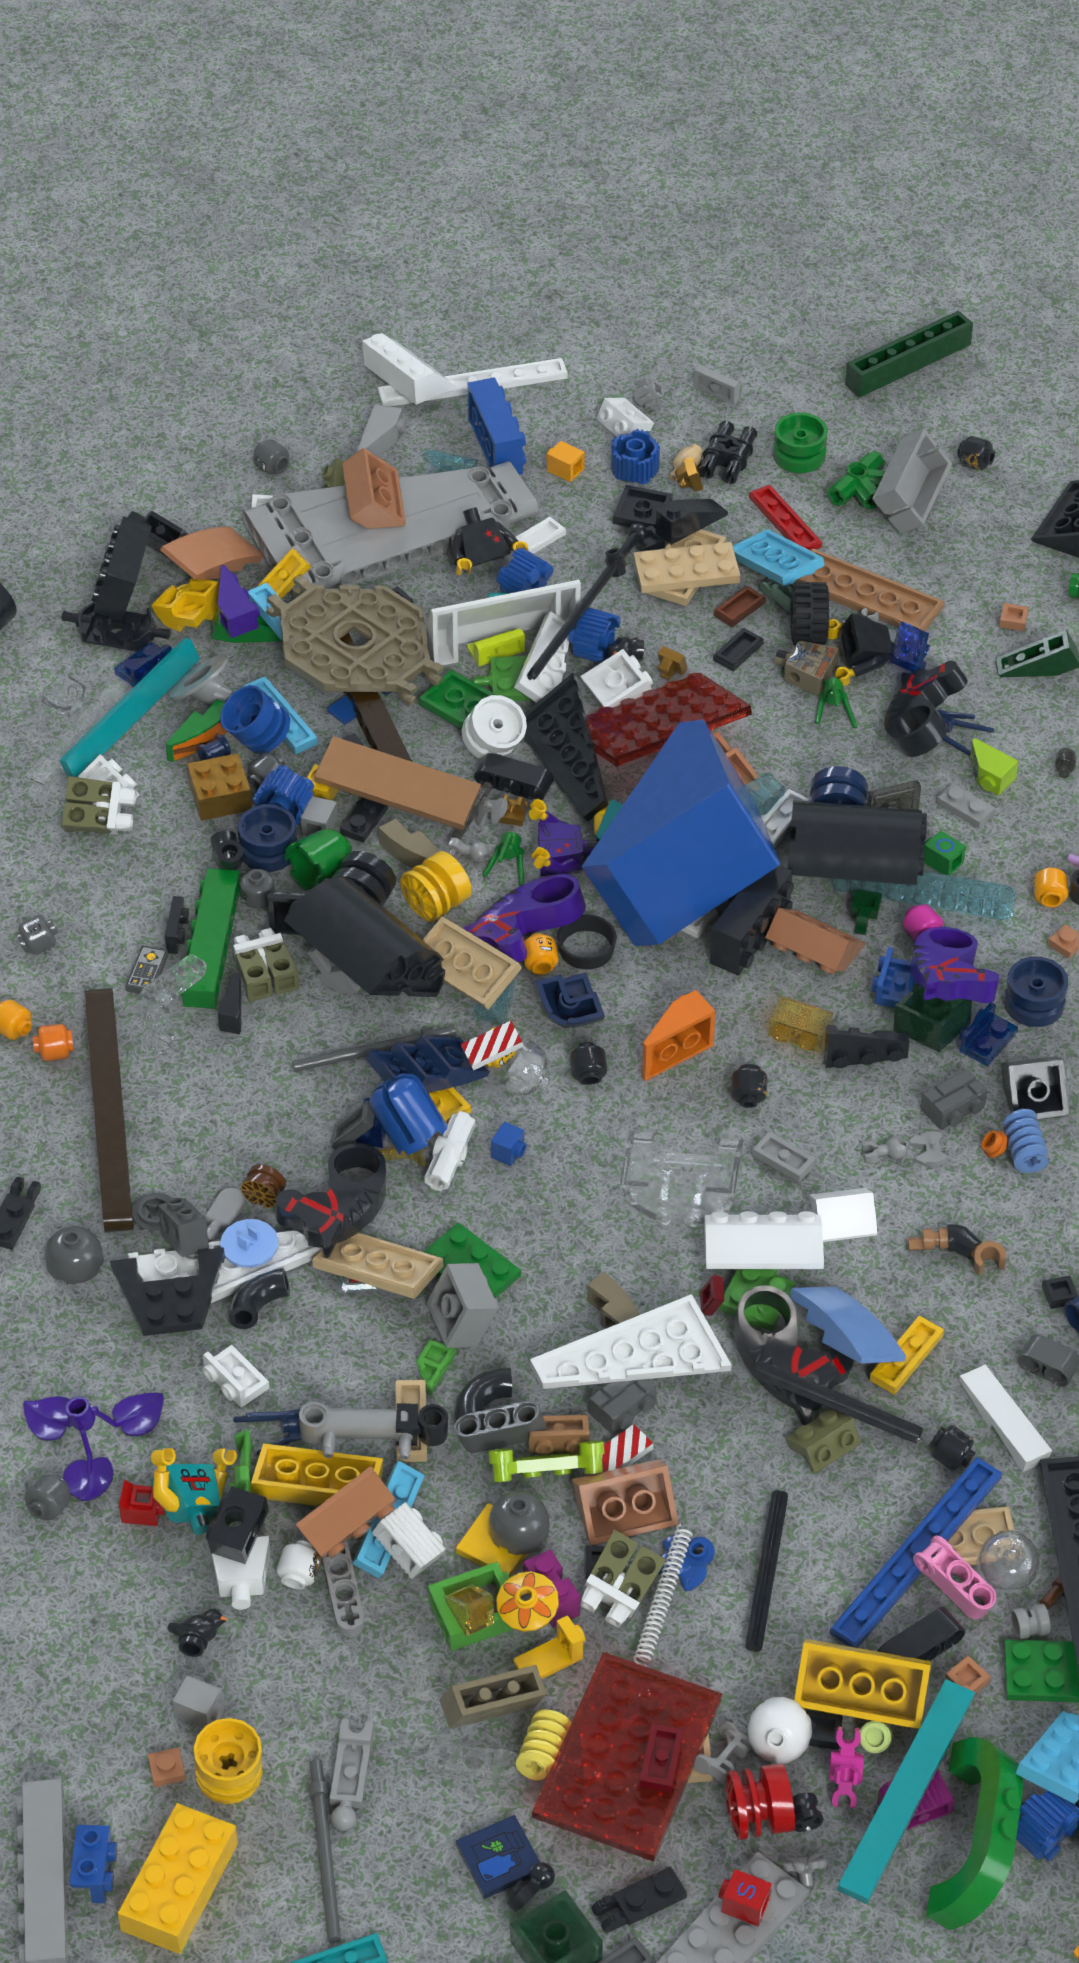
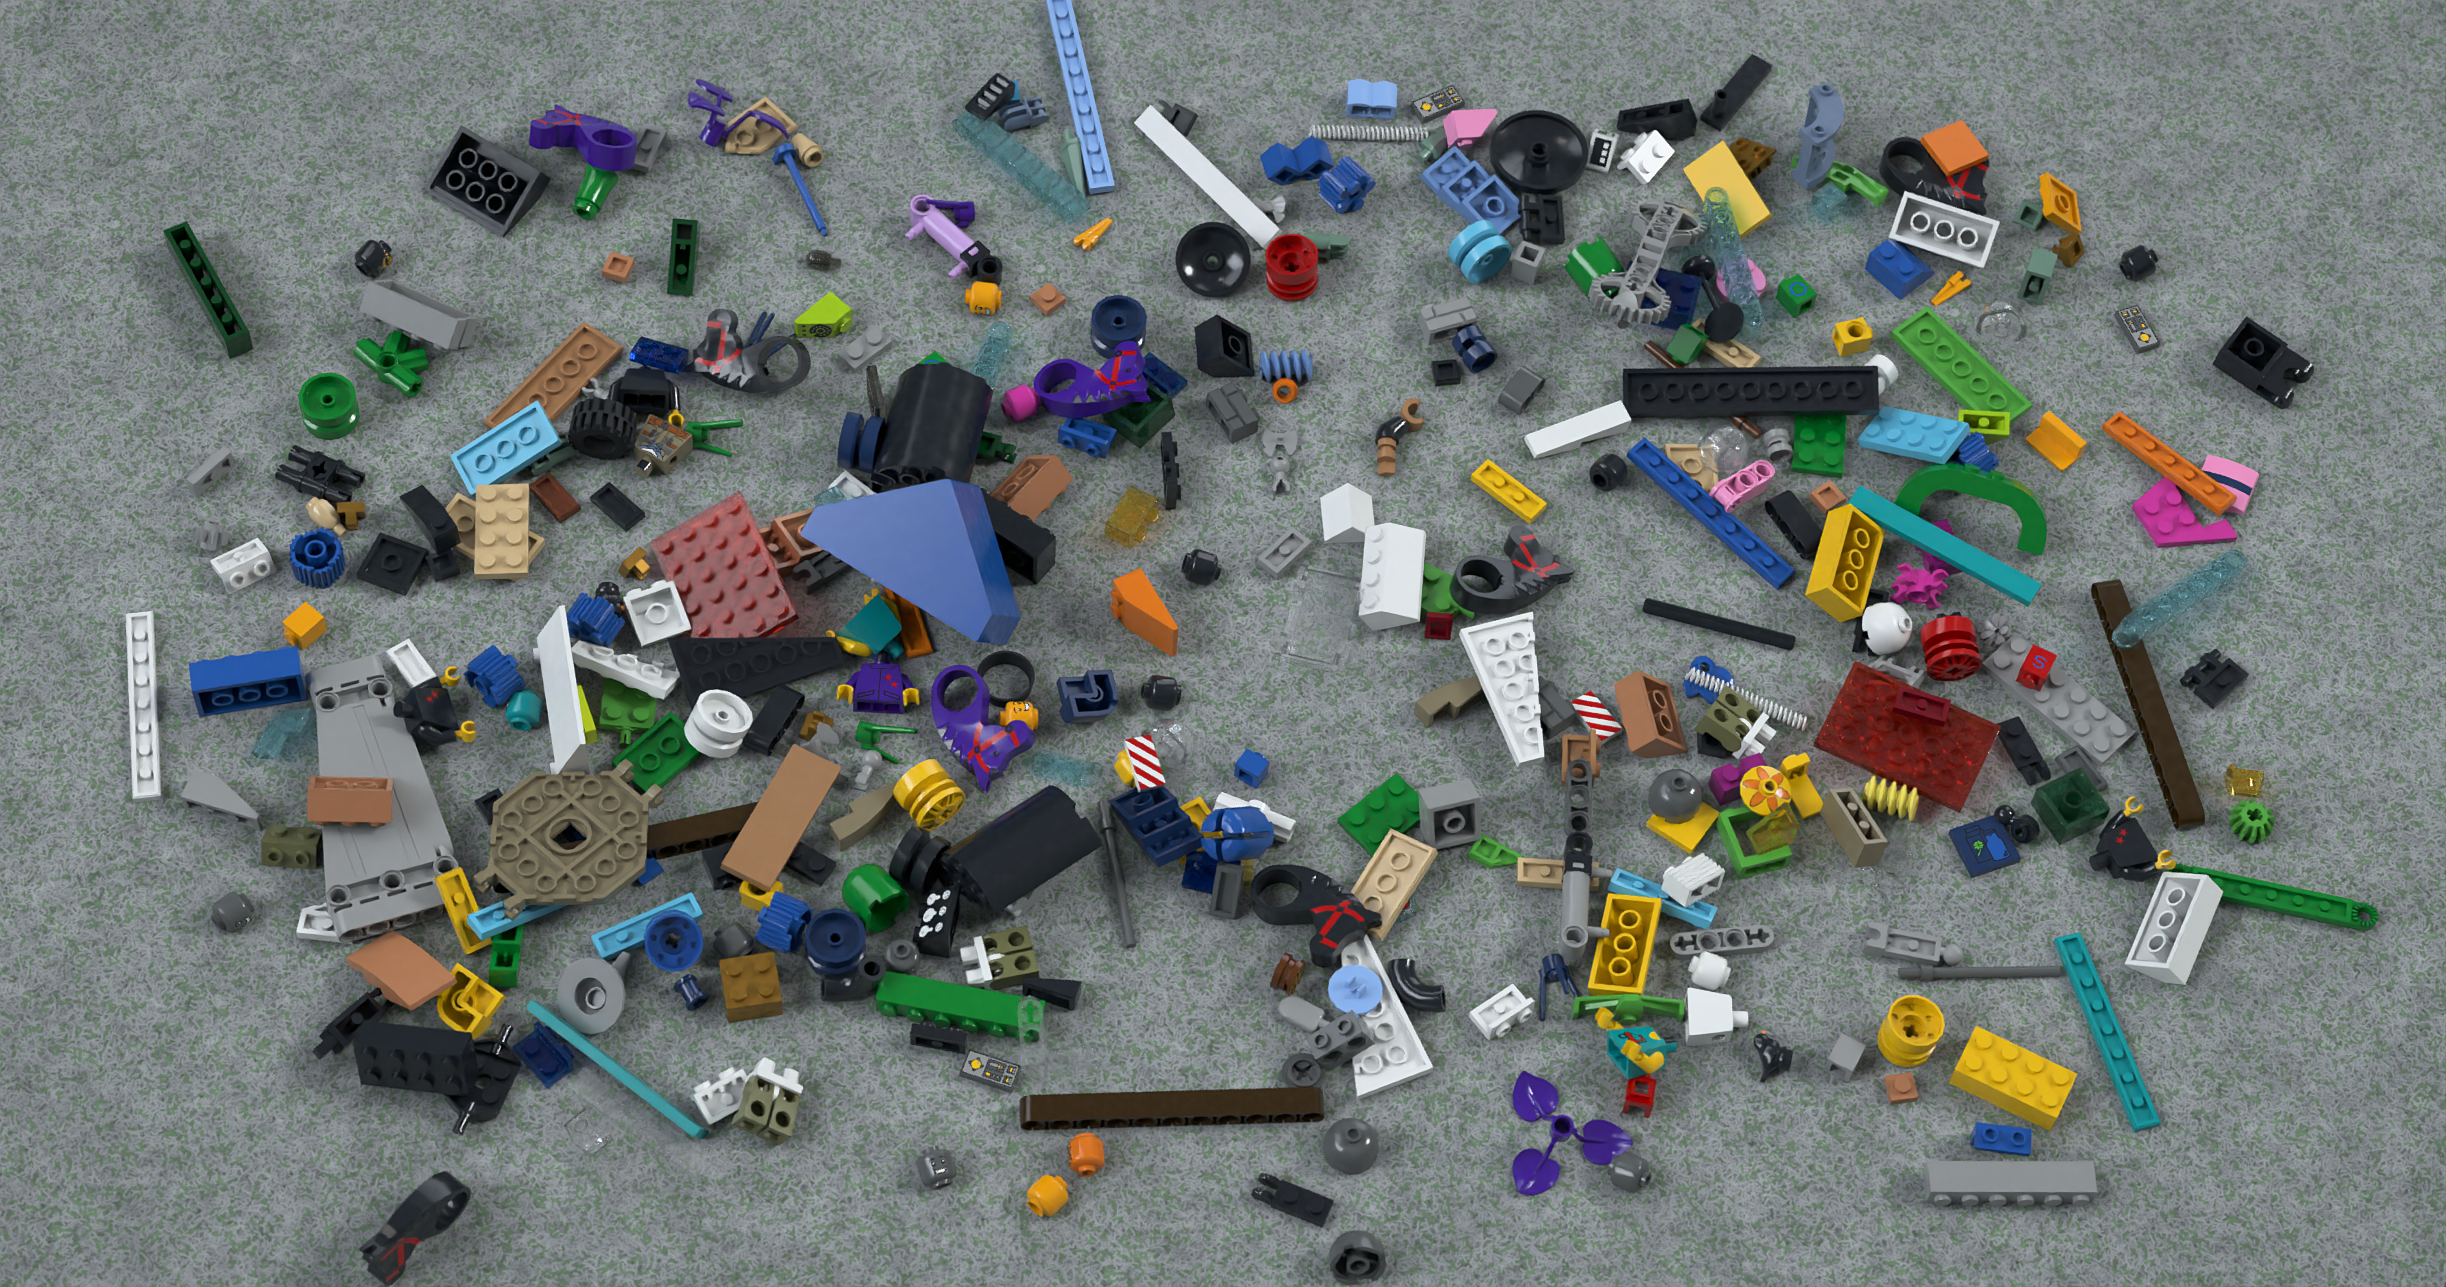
camera: 90 degrees left, 10 degrees up
(170, 1303) = (1424, 1057): black wing -> none
(195, 731) = (660, 1001): green slope -> none
(236, 610) = (501, 948): dark purple slope -> none
(238, 1541) = (1704, 1003): black brick -> none
(318, 815) = (809, 892): light grey brick -> none
(347, 1513) = (1680, 915): nougat slope -> none
(403, 369) = (121, 764): white slope -> none
(471, 963) = (1043, 763): tan plate -> none
(483, 1390) = (1534, 817): black cylinder -> none
(504, 1465) = (1611, 780): lime plate -> none
(615, 567) = (500, 589): black bar -> none
(784, 517) = (431, 441): red tile -> none
(825, 1439) = (1590, 564): olive bracket -> none
(837, 1401) = (1564, 544): black axle -> none
(848, 1325) = (1487, 522): medium blue slope -> none
(876, 1736) = (1883, 569): yellowish green tile -> none

